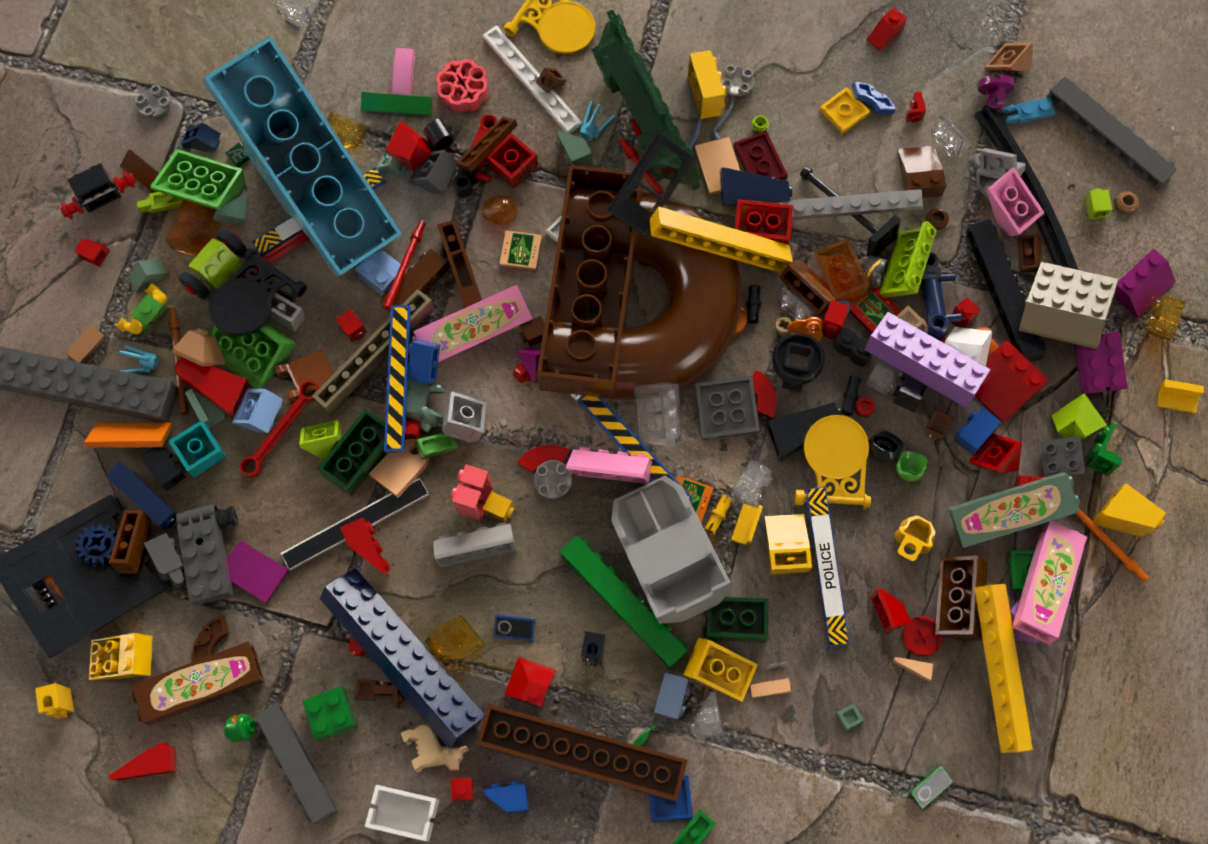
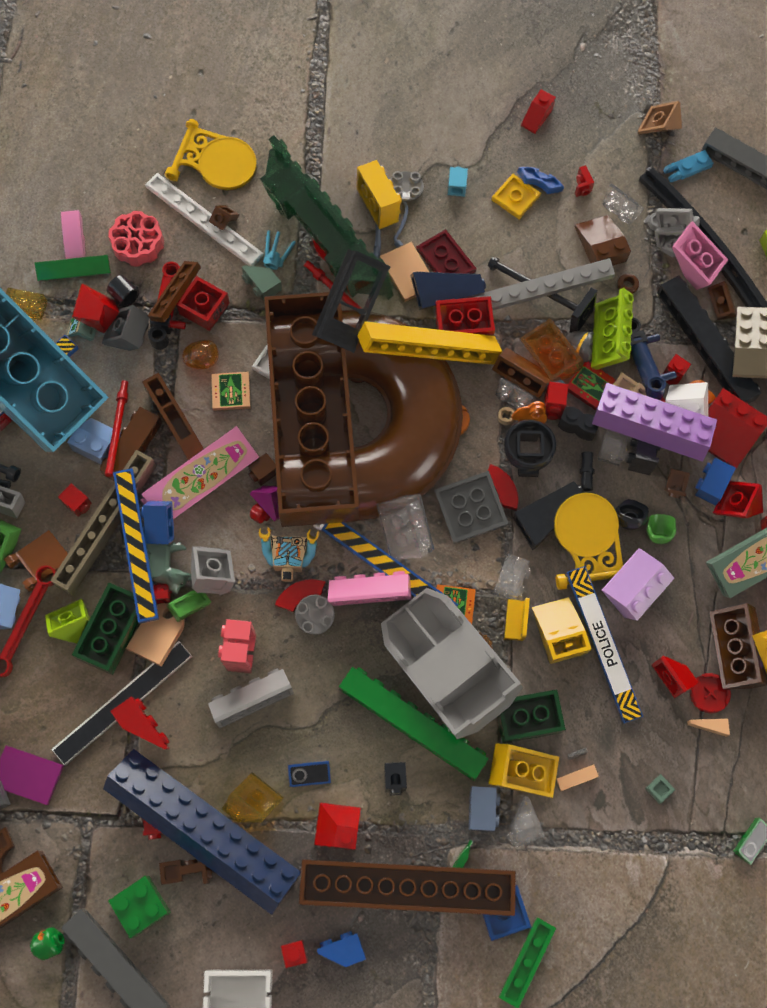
camera: 20 degrees left, 0 degrees up
(430, 751) = (253, 921): tan animal -> none
(499, 507) = (266, 654): yellow brick -> none
(540, 415) = (288, 552): none -> torso
(718, 514) = (486, 614): yellow pin -> none
(753, 304) = (472, 400): black pin -> none
(760, 120) = (438, 219): lime plate -> none
(788, 85) = (457, 181): none -> medium azure brick
(865, 407) = (602, 479): red tile -> none
(873, 515) = (637, 584): none -> lavender slope
(915, 534) = (682, 595): yellow piece -> none
(996, 88) = (653, 149): magenta tile -> none

